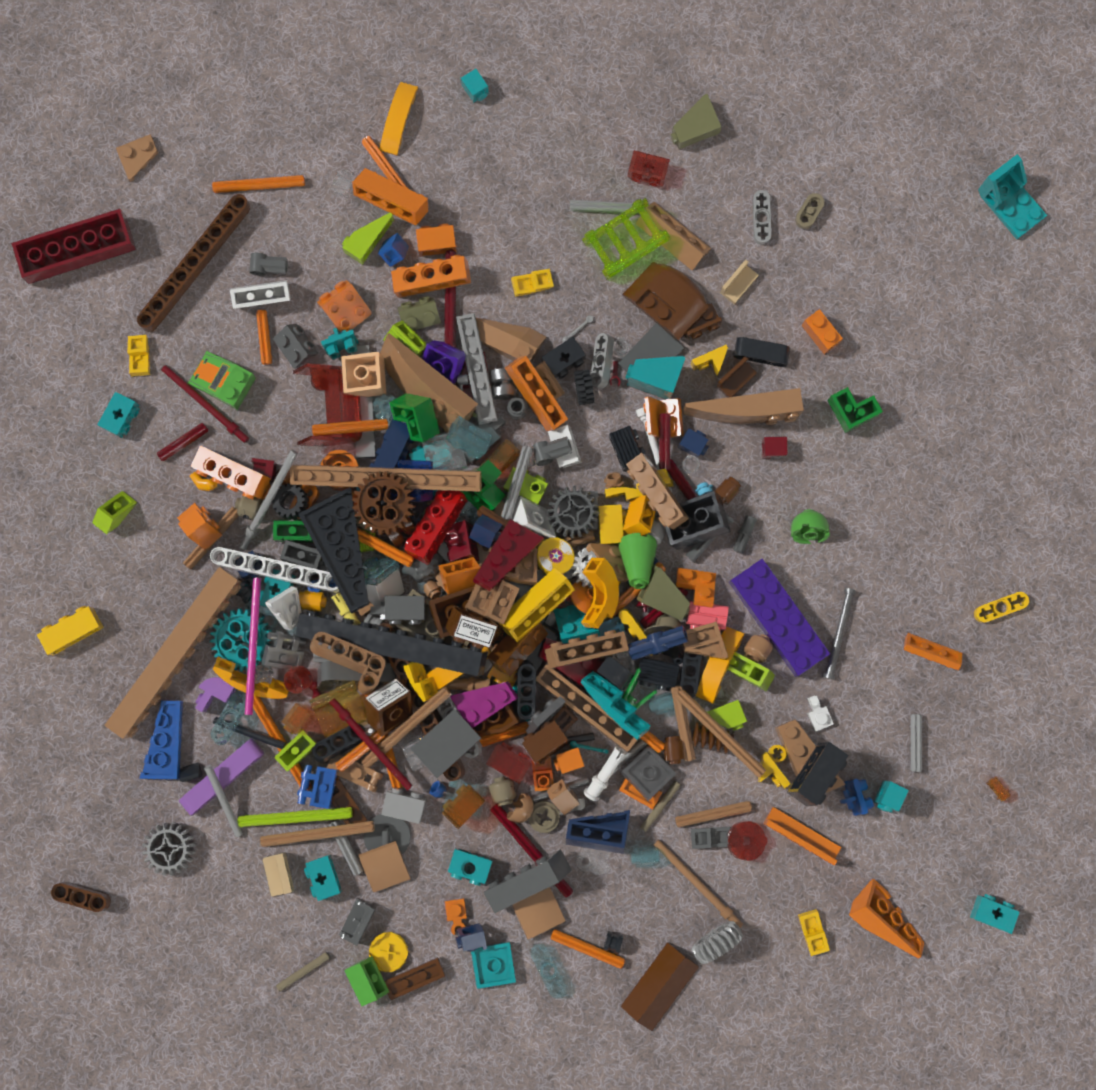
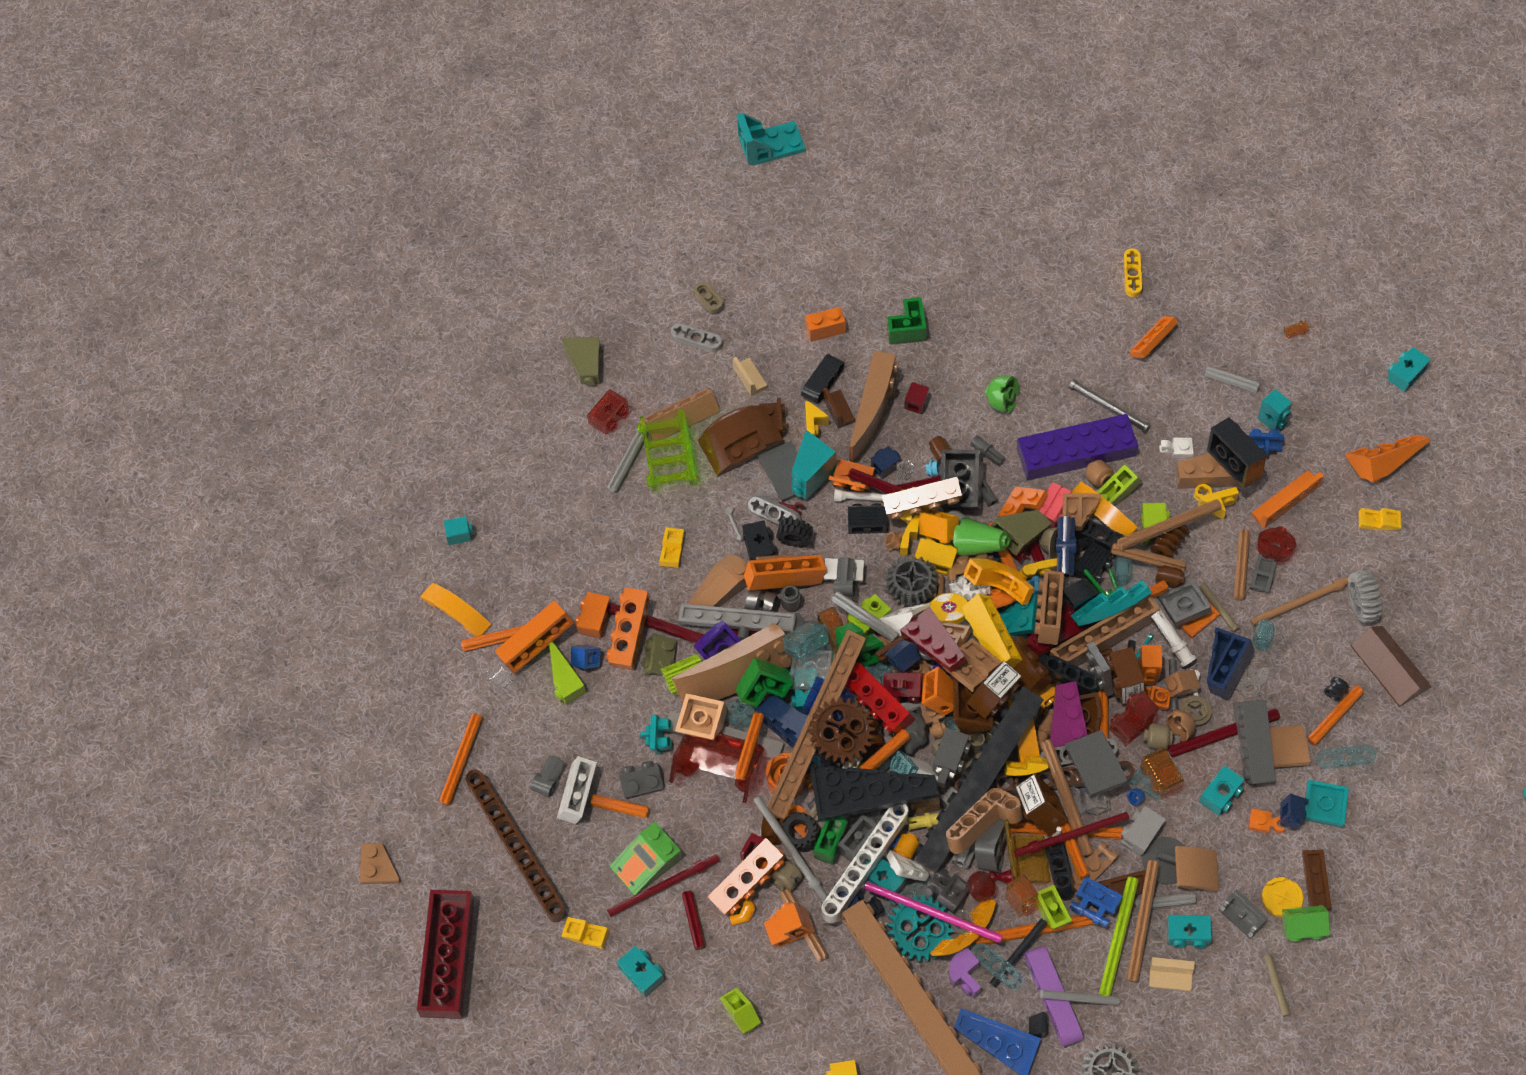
camera: 65 degrees left, 20 degrees down
(344, 306) = (620, 719): orange bracket -> none

